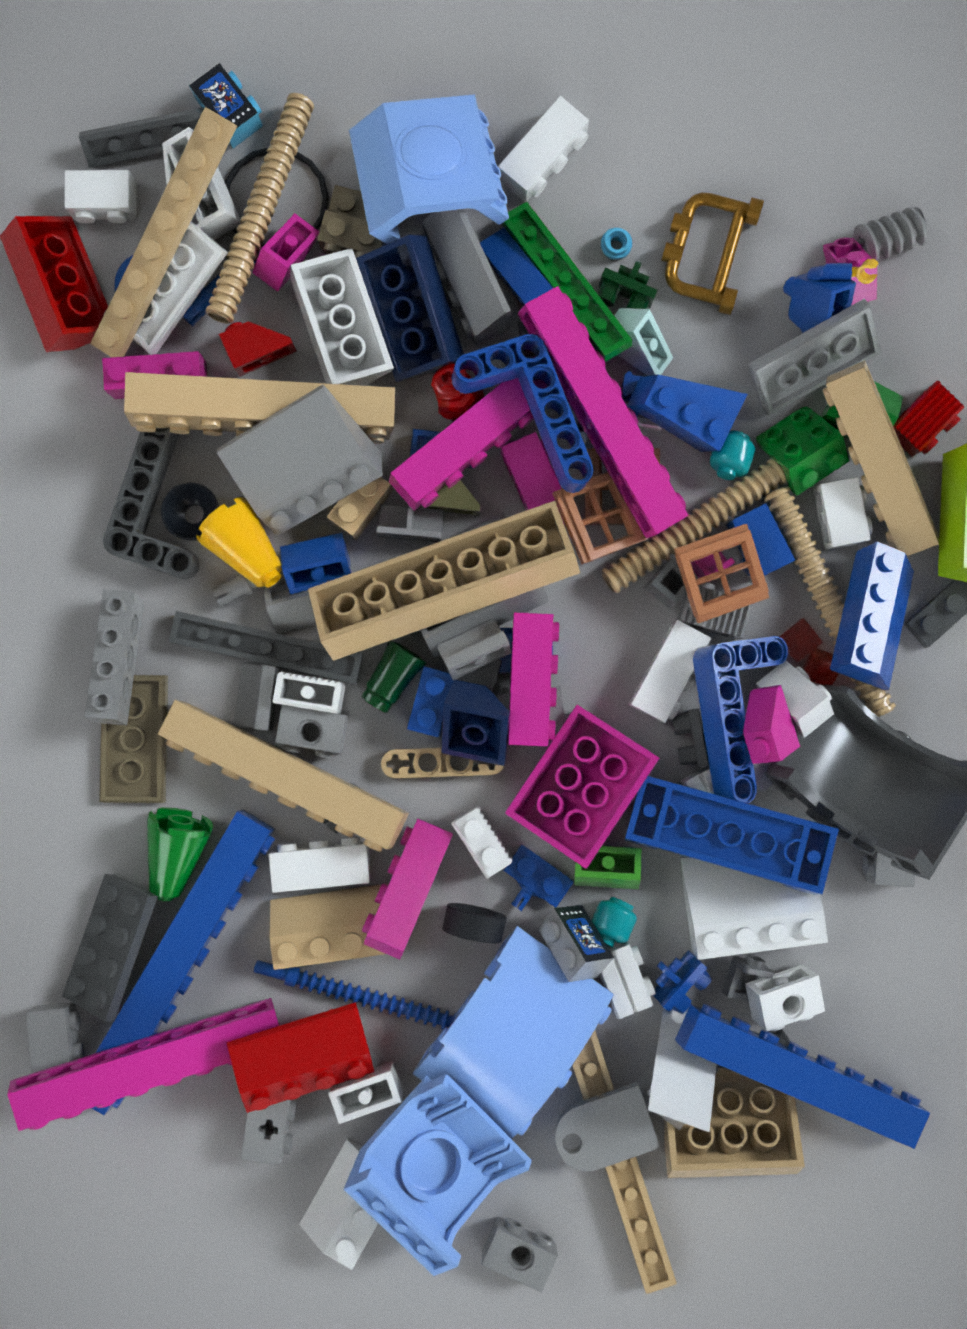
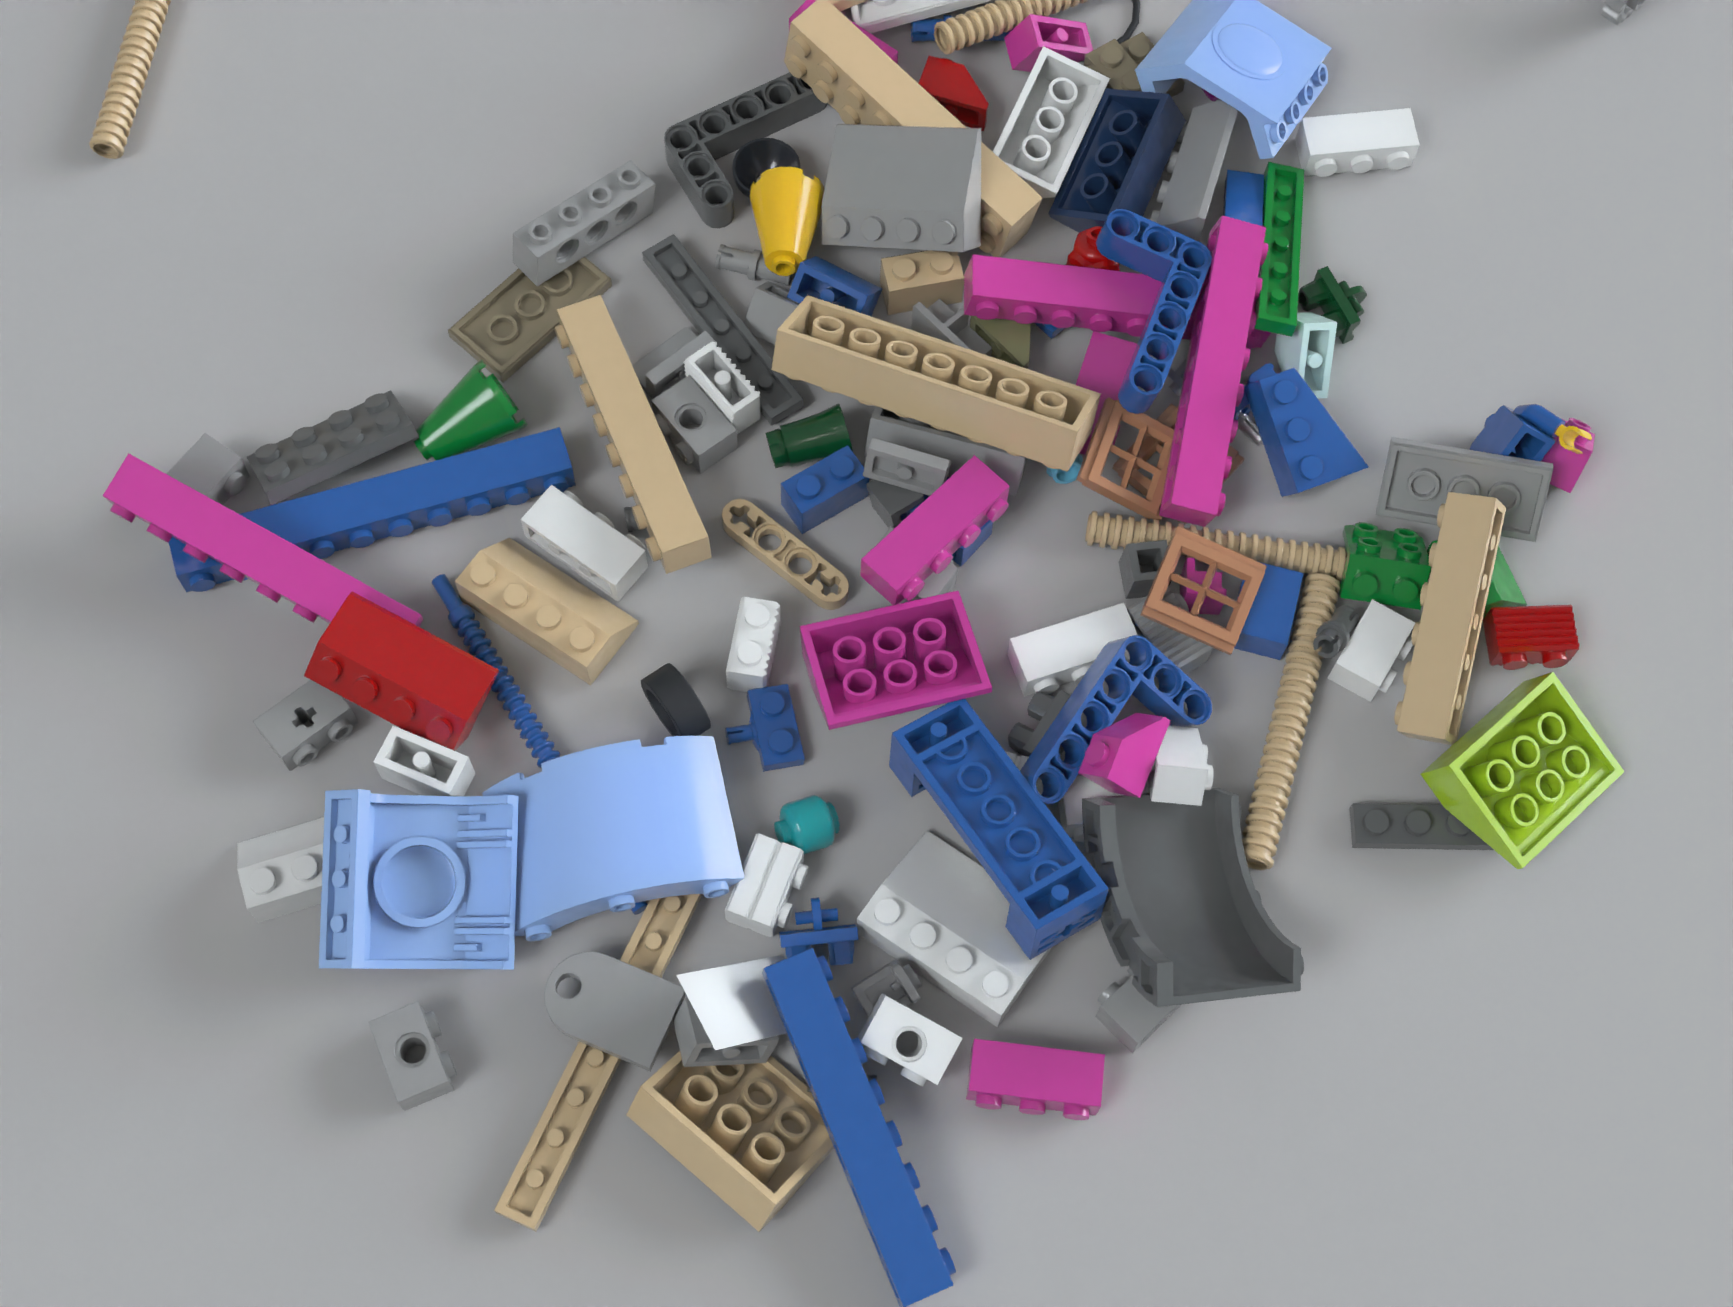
camera: 40 degrees right, 20 degrees down
(407, 889) = (645, 614): dark pink brick -> none
(475, 724) = (843, 526): dark blue slope -> none
(575, 943) = (753, 799): brick -> none
(611, 869) = (850, 767): bright green brick -> none
(620, 235) = (1361, 257): medium azure plate -> none
(681, 224) = (1434, 298): pearl gold bar -> none
(734, 457) = (1308, 515): teal head -> none
(800, 639) = (1229, 732): clear red tile -> none
(818, 530) = (1334, 634): none -> dark grey pin
(818, 667) = (1232, 768): clear red plate -> none
(870, 952) = (1035, 1078): none -> dark pink brick
(873, 615) = (1325, 760): blue slope -> none
(892, 232) = (1634, 452): light grey piece -> none

